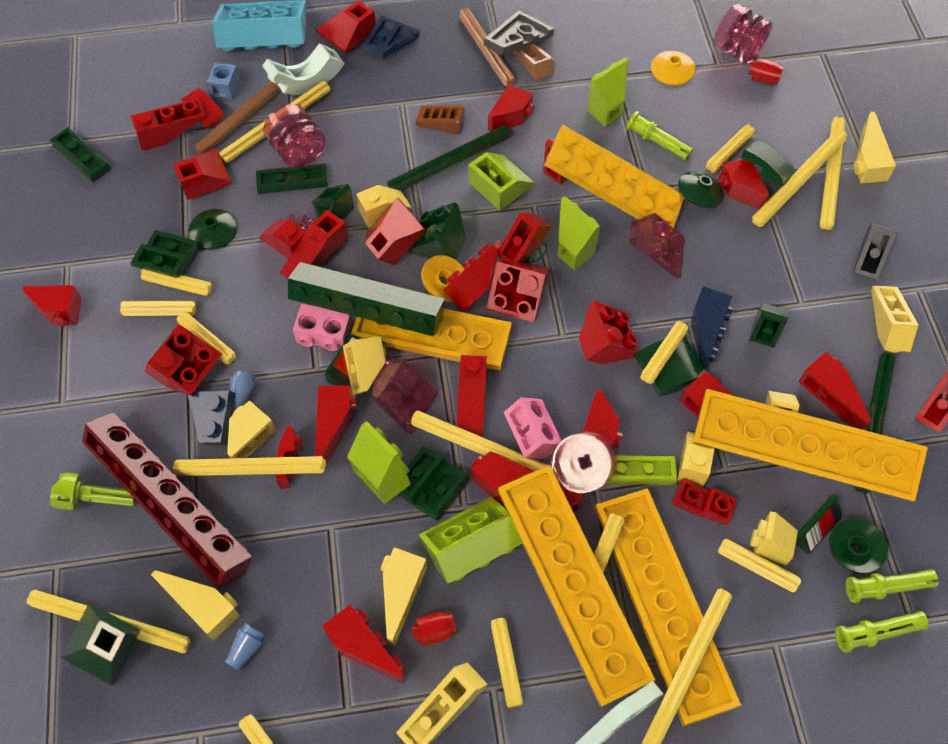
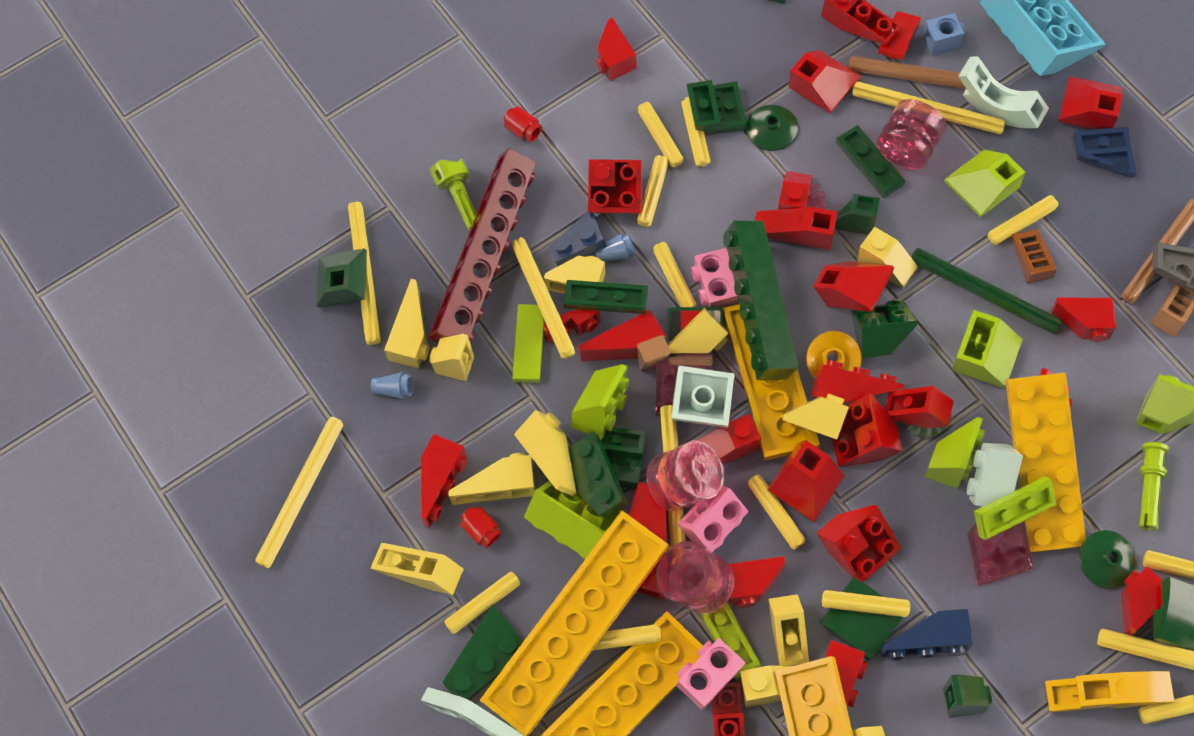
camera: 70 degrees right, 5 degrees up
(64, 408) = (522, 124): none -> red brick
(253, 574) = (453, 357): none -> light yellow slope
(280, 504) = (528, 344): none -> lime tile
(284, 413) = (606, 296): none -> dark green tile
(295, 359) = (673, 275): none -> light yellow axle
(362, 112) = (986, 180): none -> lime slope
(363, 399) = (651, 352): none -> medium nougat slope
(392, 529) = (549, 449): none -> light yellow slope
(408, 111) = (1022, 220): none -> light yellow axle
(427, 380) = (702, 396): none -> light aqua slope
(440, 505) = (595, 476): none -> dark green wing
(491, 425) = (685, 476): none -> clear pink wheel
(493, 304) = (819, 415): none -> light yellow slope
(535, 345) = (807, 480): none -> red slope
(549, 382) = (776, 512): none -> light yellow axle
(559, 682) = (483, 656): none -> dark green wing
(614, 211) = (995, 473): none -> light aqua slope
(646, 211) = (1015, 508): none -> lime tile
(656, 419) = (789, 630): none -> light yellow slope
(678, 491) = (714, 677): none -> bright pink brick
(803, 236) = (1109, 690): none -> yellow slope

